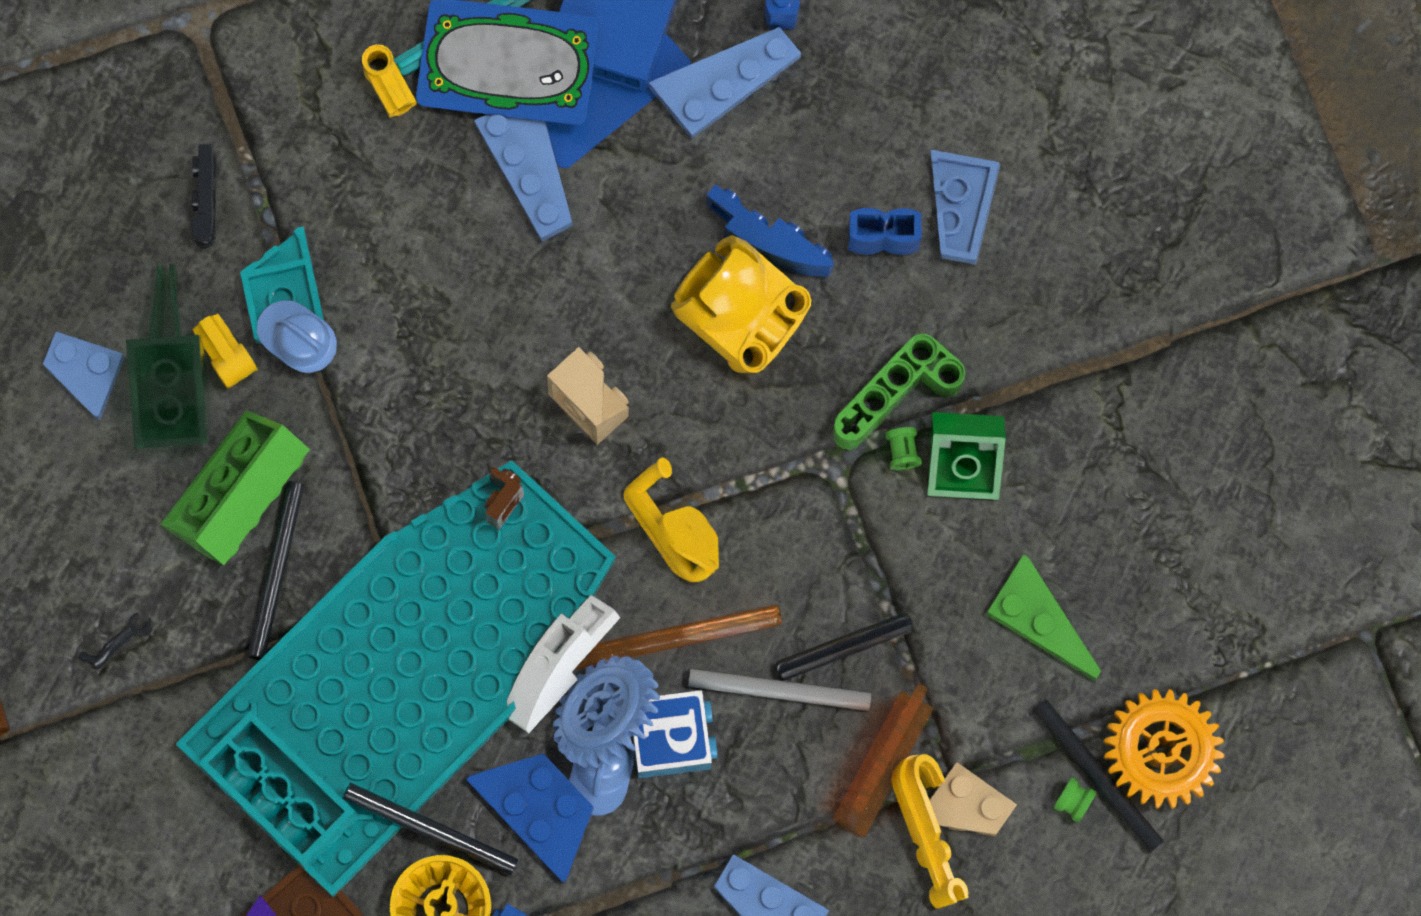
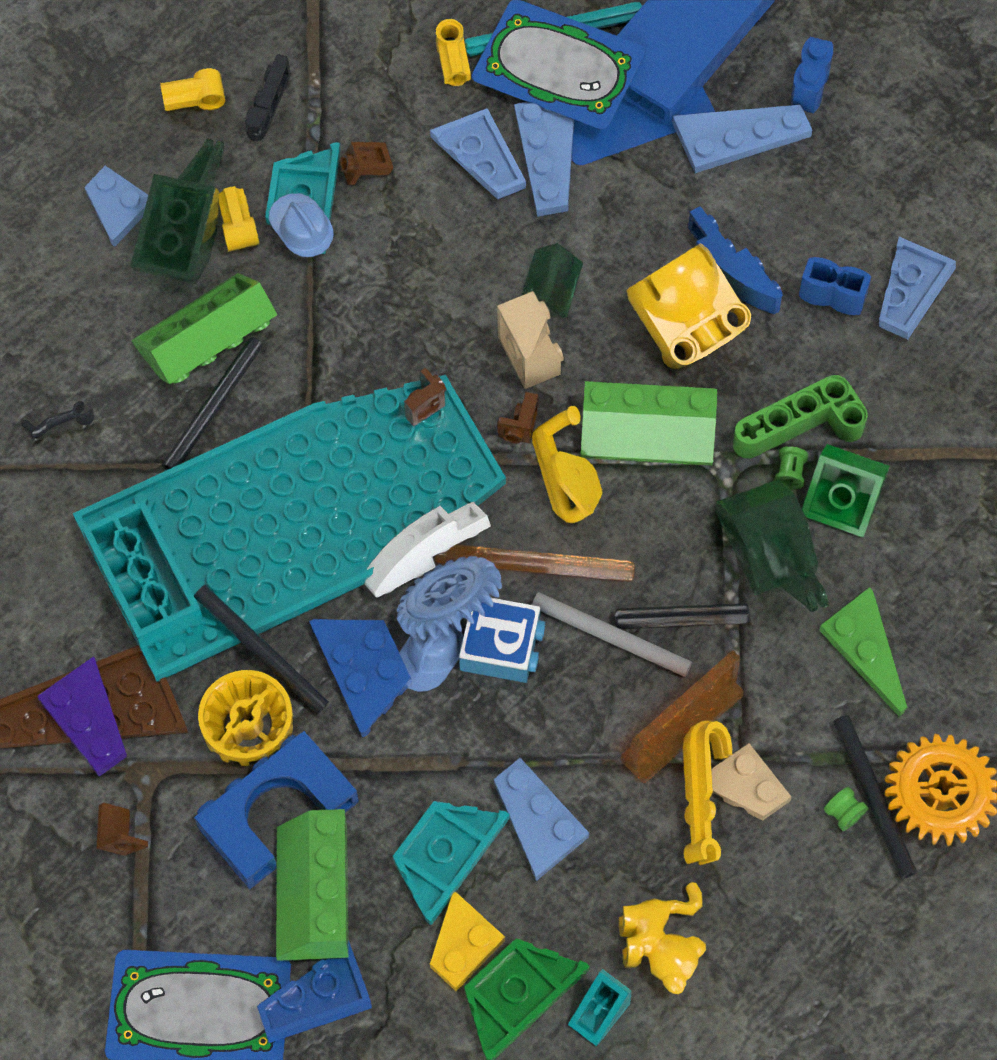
camera: 25 degrees right, 10 degrees down
(128, 209) = (202, 90): none -> yellow piece
(337, 238) = (365, 159): none -> reddish brown bracket
(460, 188) = (481, 152): none -> medium blue wing
(583, 314) = (553, 277): none -> clear green panel
(611, 479) = (522, 426): none -> reddish brown bracket
(741, 447) = (649, 423): none -> slope
(913, 540) = (773, 542): none -> clear green slope

